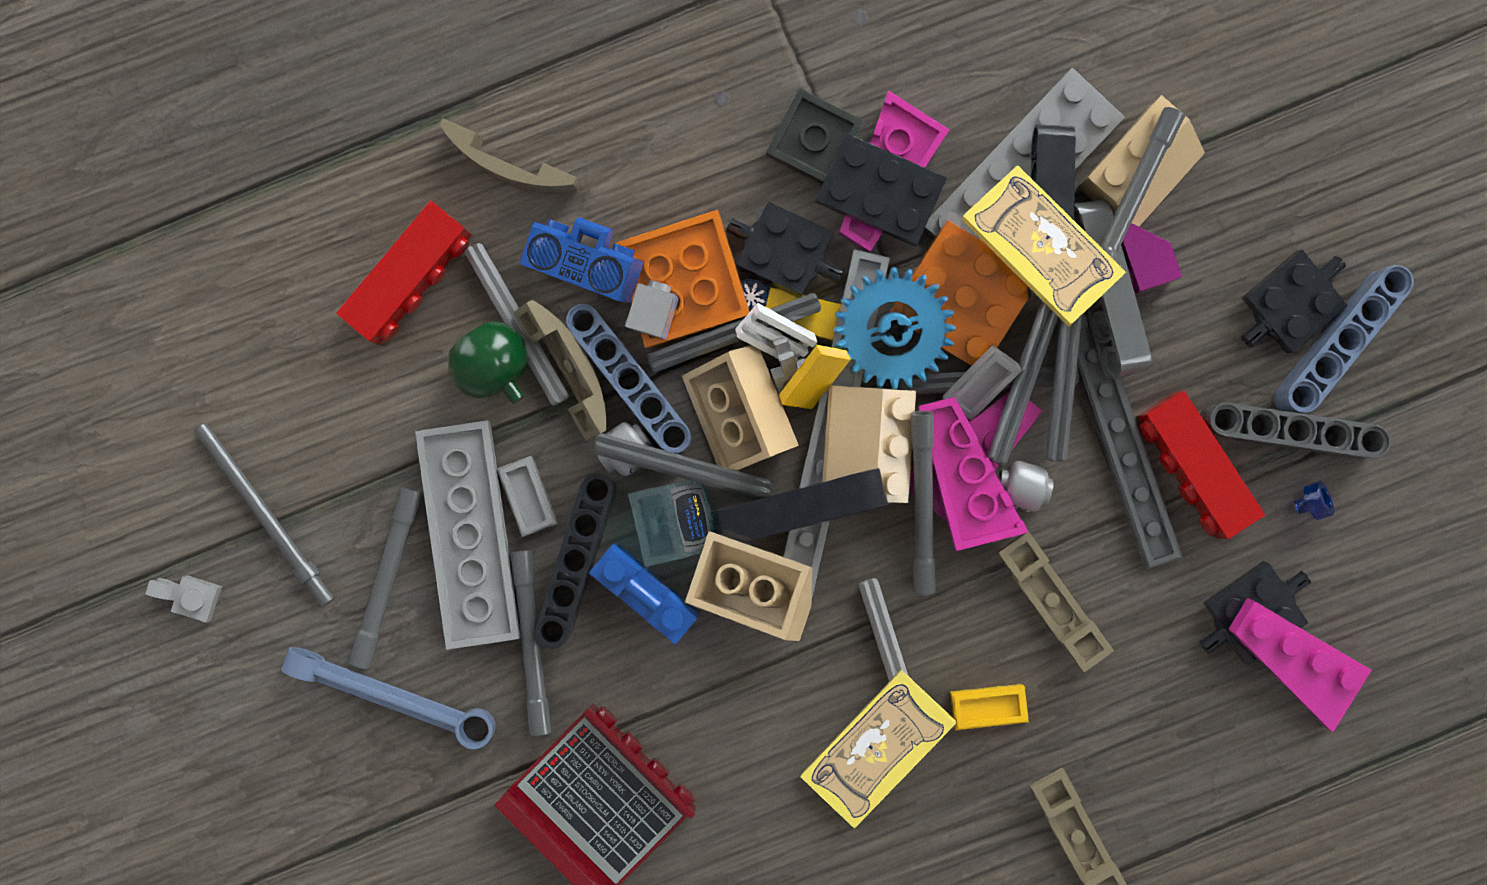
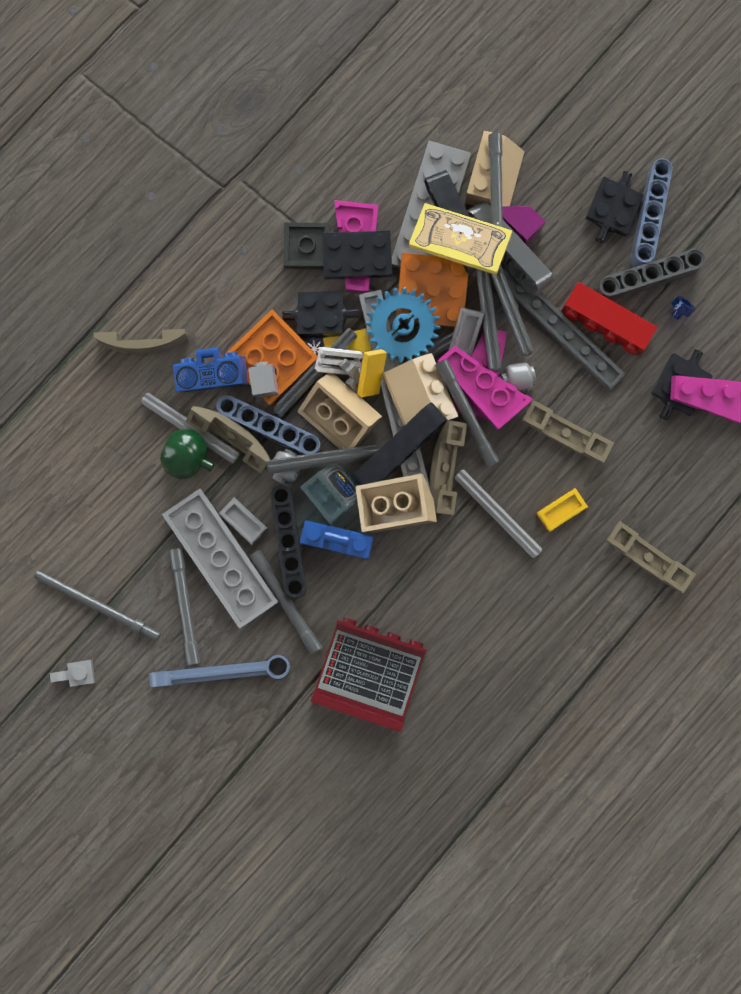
camera: 30 degrees left, 5 degrees down
(404, 274) = (113, 429): red brick -> none
(850, 562) = (443, 466): none -> dark tan slope
(878, 748) = (511, 563): tile -> none

